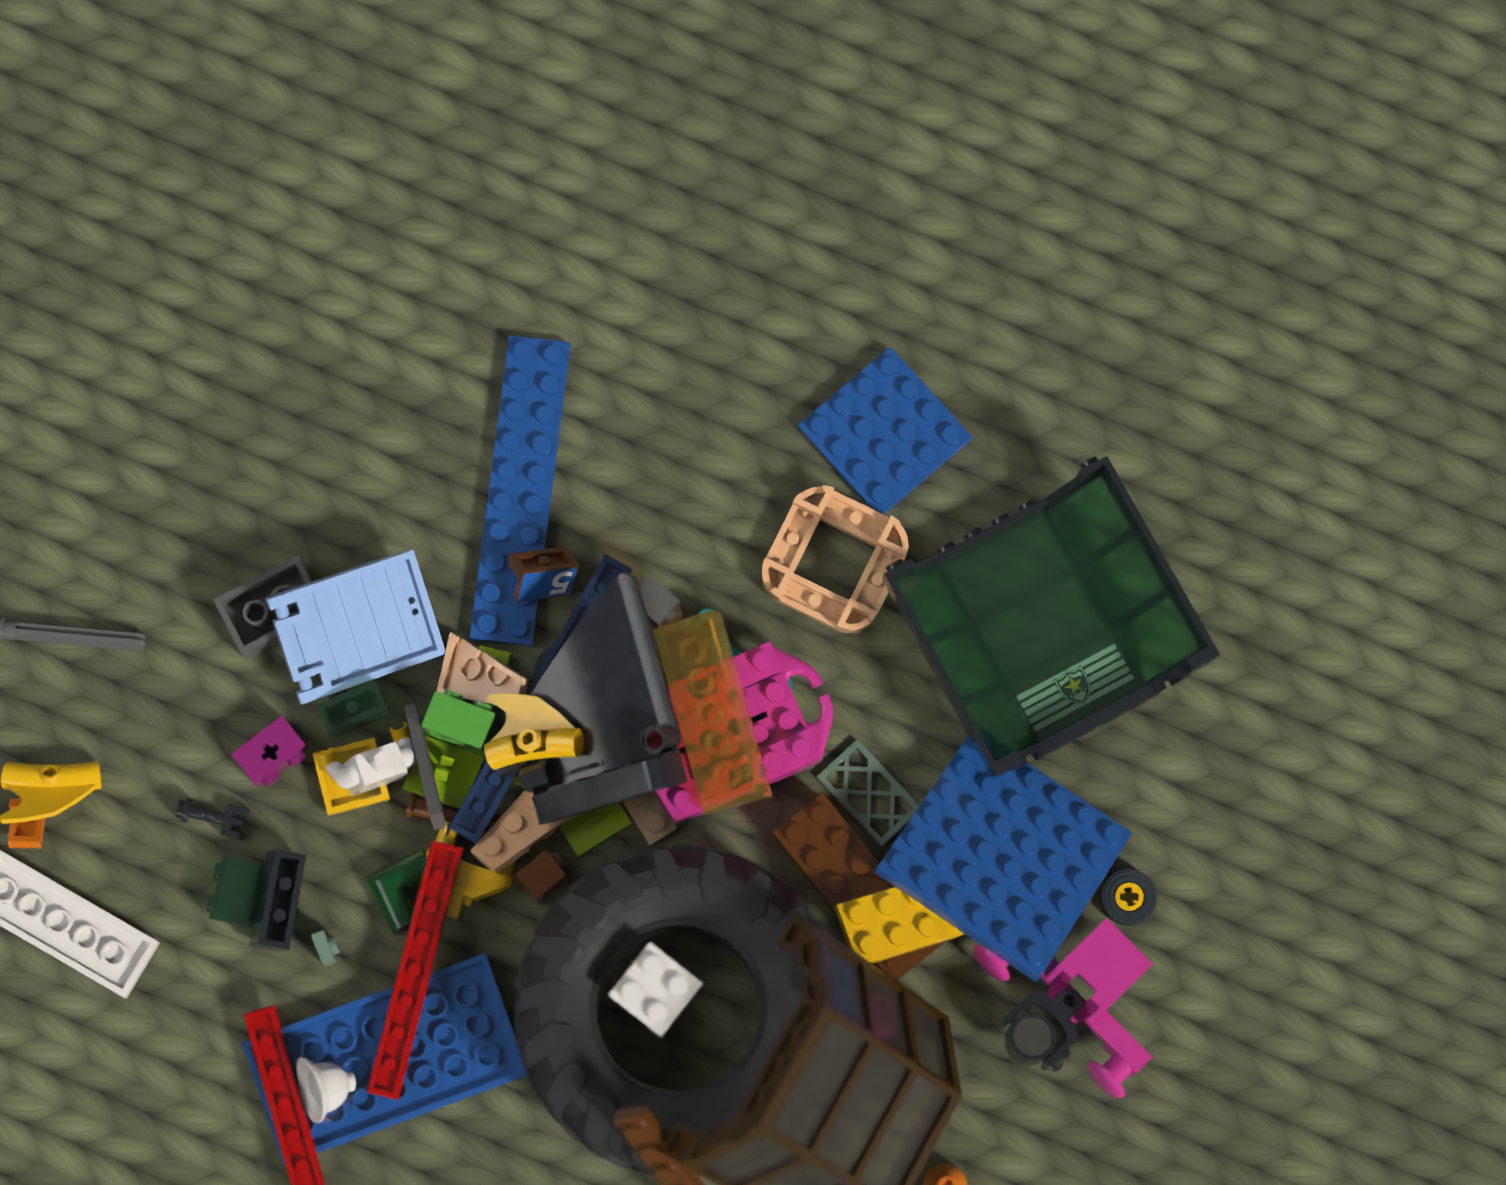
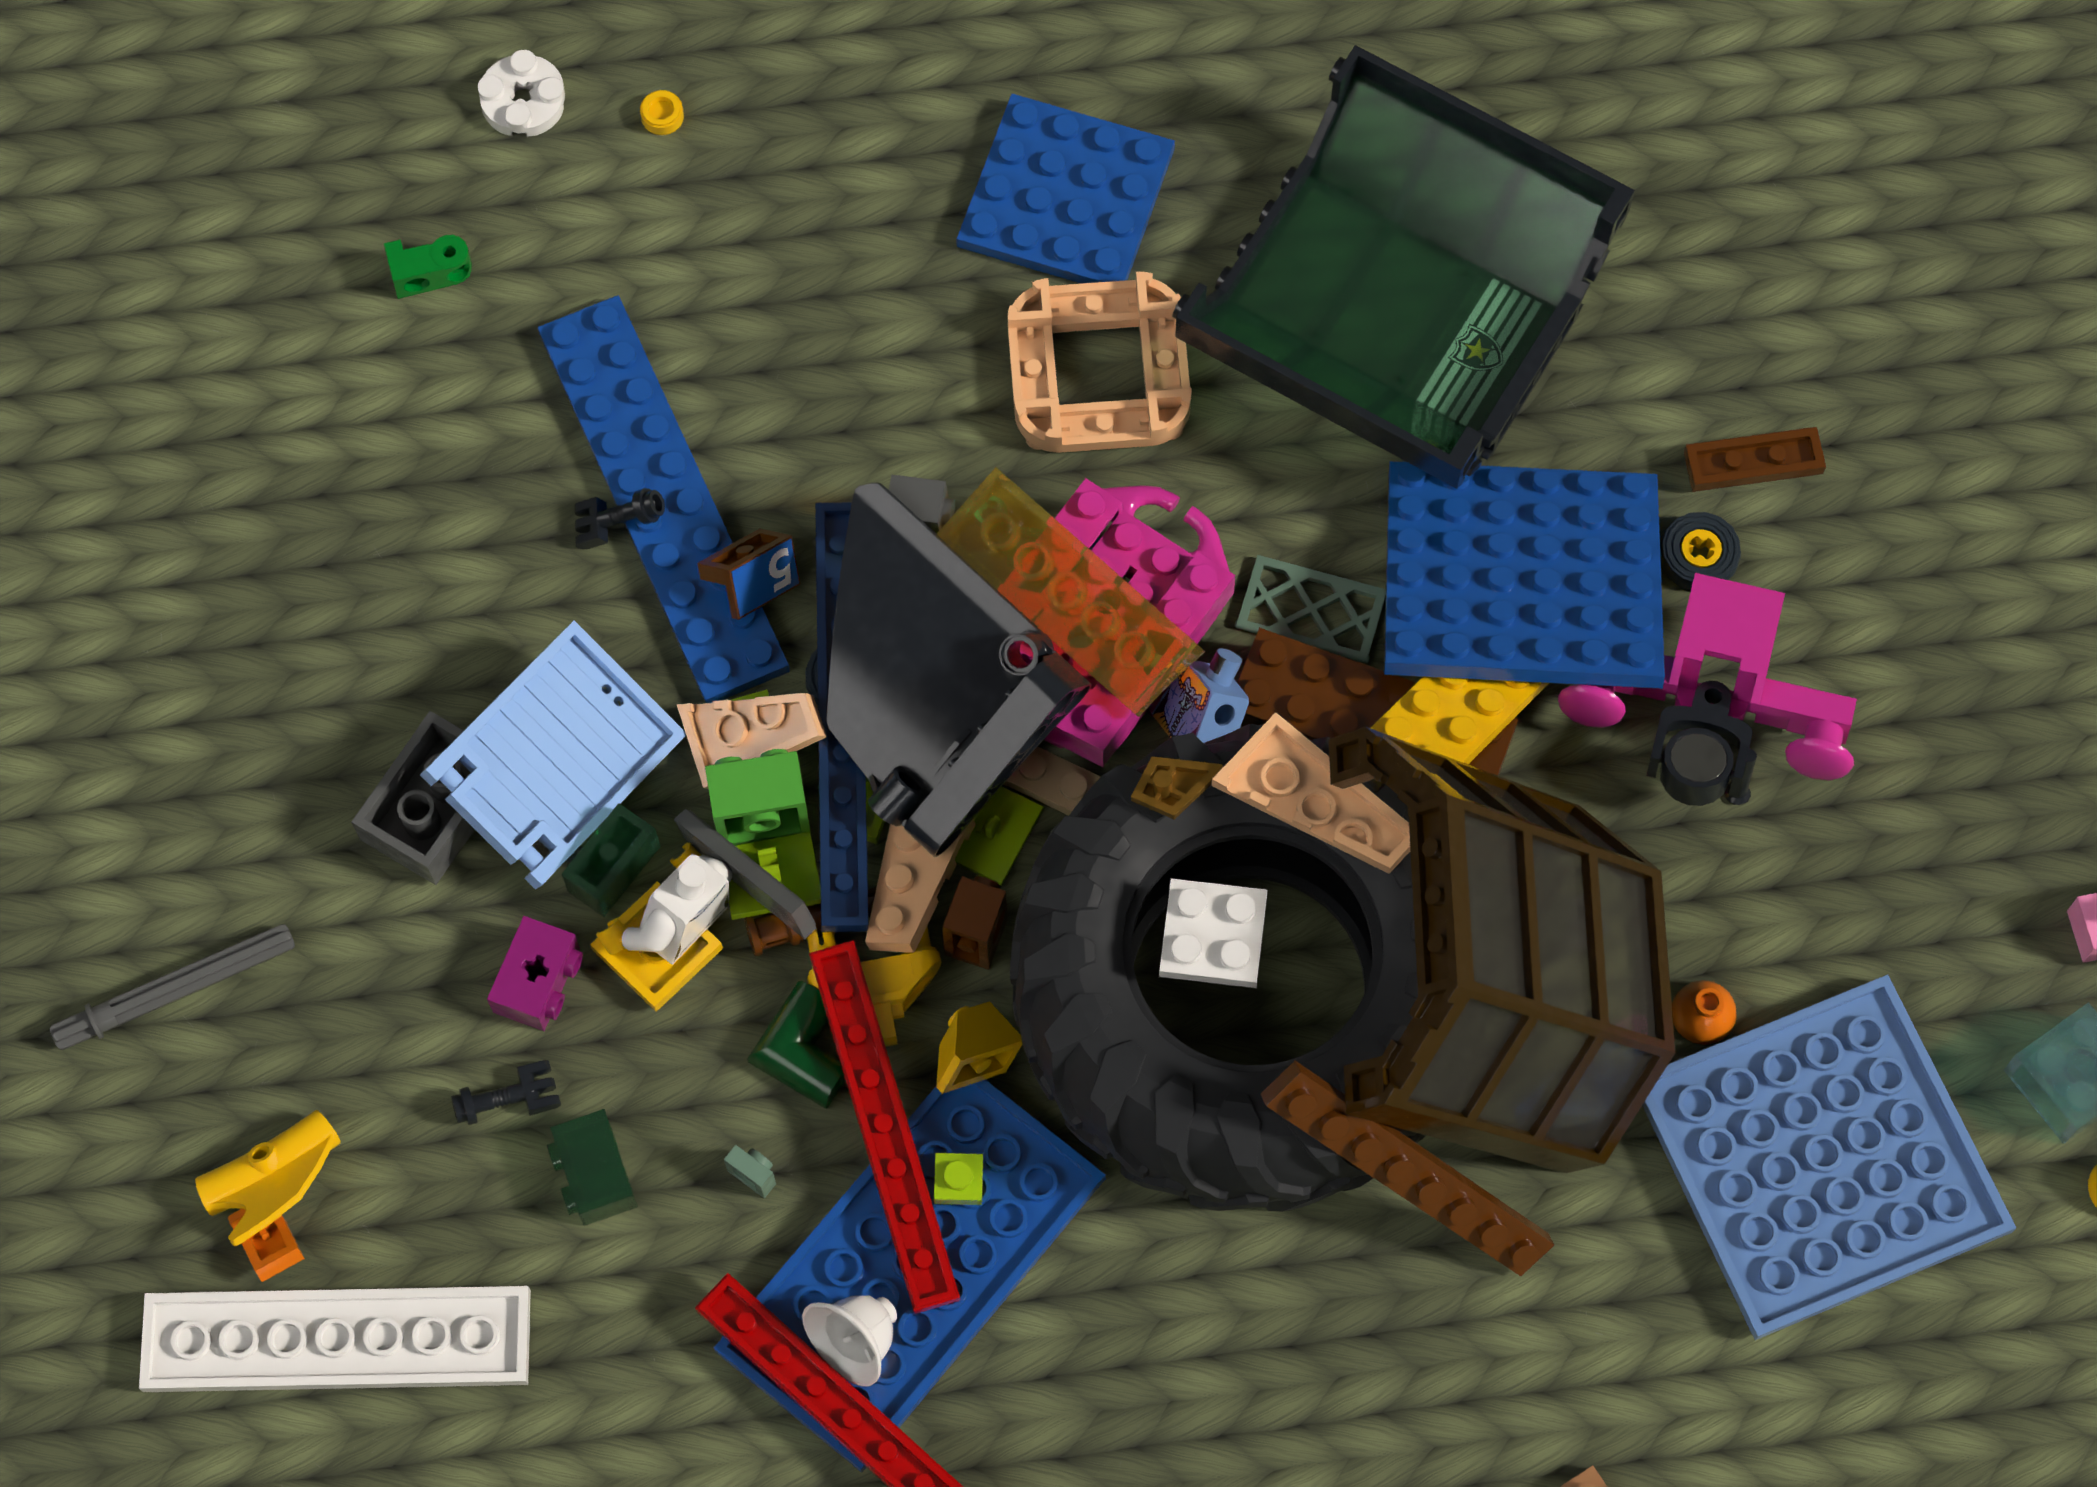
camera: 25 degrees left, 10 degrees down
(278, 900) = (655, 1144): black brick -> none
(440, 1027) = (958, 1179): none -> lime plate
(465, 257) = (428, 266): none -> green leg
(495, 952) = (975, 1047): none -> yellow slope
(502, 496) = (596, 518): none -> black hinge
(531, 732) = (856, 746): yellow pin -> none
(595, 155) = (519, 72): none -> white plate
(668, 233) = (661, 112): none -> yellow tile
(688, 883) = (1173, 784): none -> pearl gold piece
(757, 827) = (1204, 699): none -> medium blue torso
(757, 922) = (1291, 781): none -> light nougat wing
(1200, 858) = (1754, 459): none -> reddish brown plate

